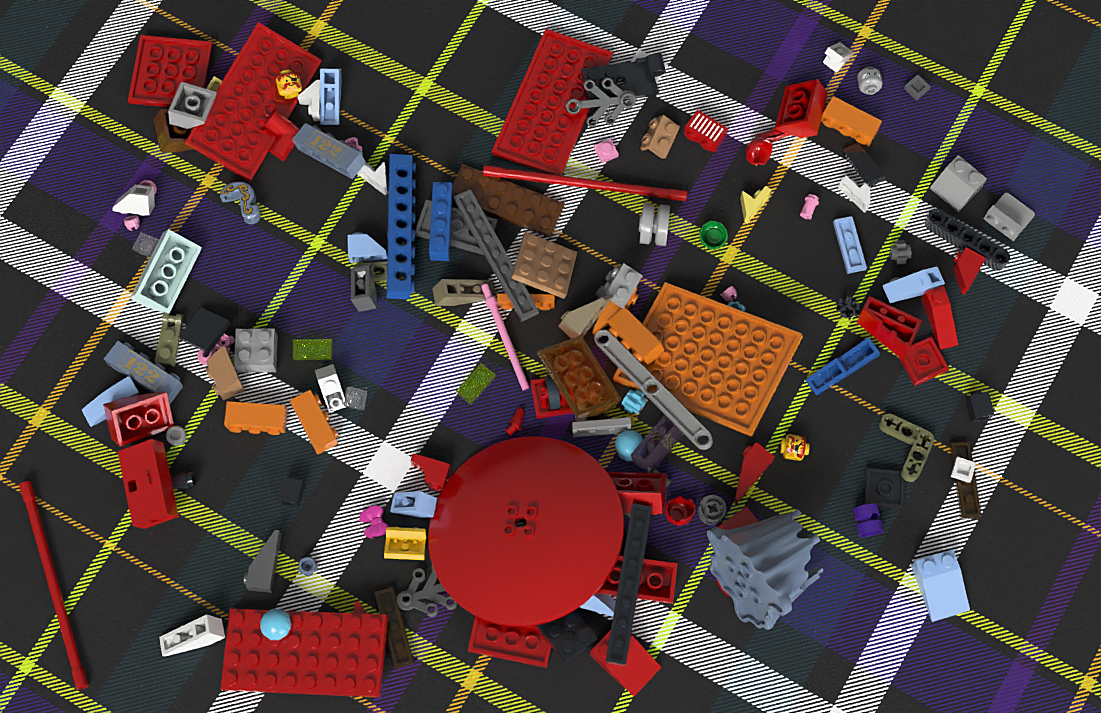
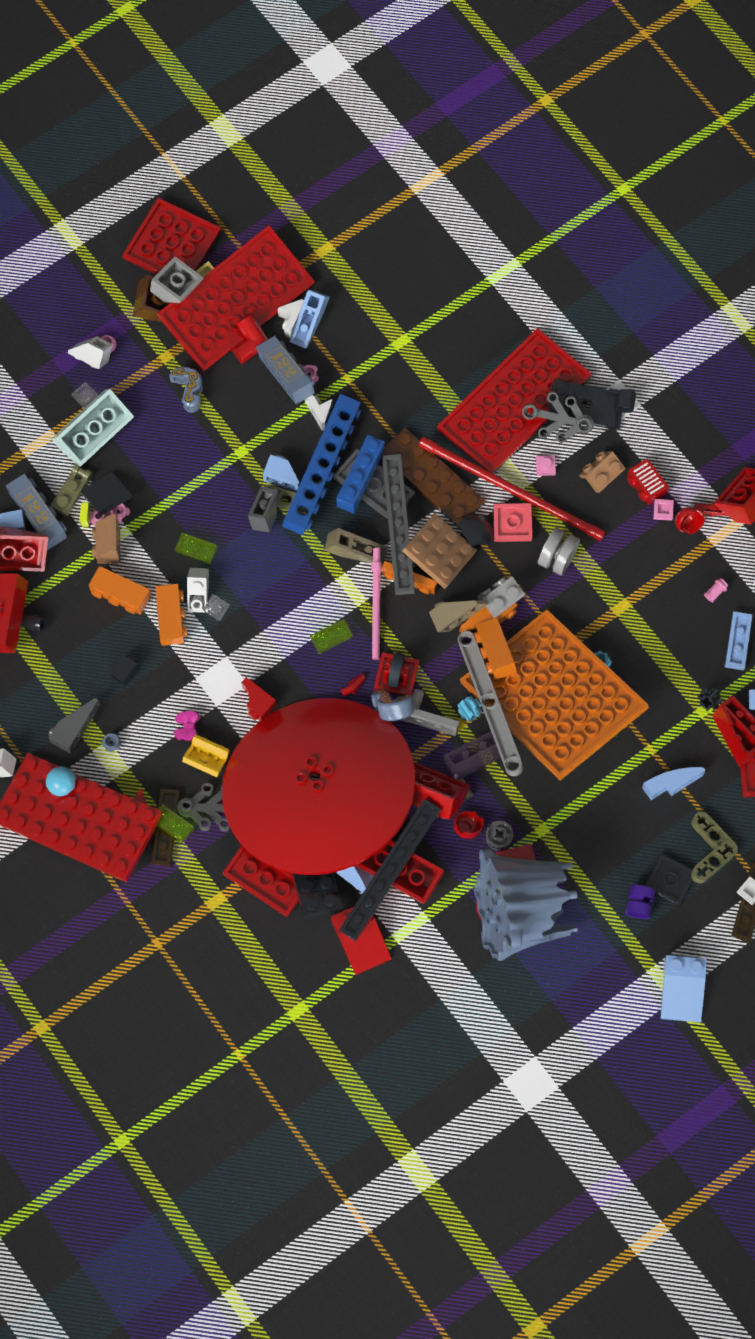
camera: 25 degrees right, 0 degrees up
(132, 221) = (81, 369): bright pink hinge -> none
(176, 435) = (42, 580): light grey tile -> none
(192, 358) = (85, 514): none -> neon yellow tile
(255, 350) = (144, 529): light grey brick -> none
(288, 84) = (274, 294): yellow head -> none
(402, 622) = (174, 824): none -> clear neon green plate
(414, 504) = (229, 724): light blue slope -> none
(561, 430) = (392, 709): none -> sand blue animal
(569, 232) = (476, 529): none -> black dish
(579, 377) = (426, 666): clear orange slope -> none
(599, 214) = (512, 522): none -> coral plate
(626, 443) = (446, 743): medium azure hair -> none
(713, 235) = (611, 582): green hair -> none
(728, 294) = (603, 642): bright pink hinge -> none
(730, 151) = (663, 509): none -> bright pink plate
(751, 205) = (662, 569): light yellow slope -> none
(753, 466) = (555, 810): red slope -> none
(794, 447) = (601, 808): yellow head -> none
(843, 366) = (681, 752): blue slope -> none
(846, 397) = (672, 781): none -> light blue slope

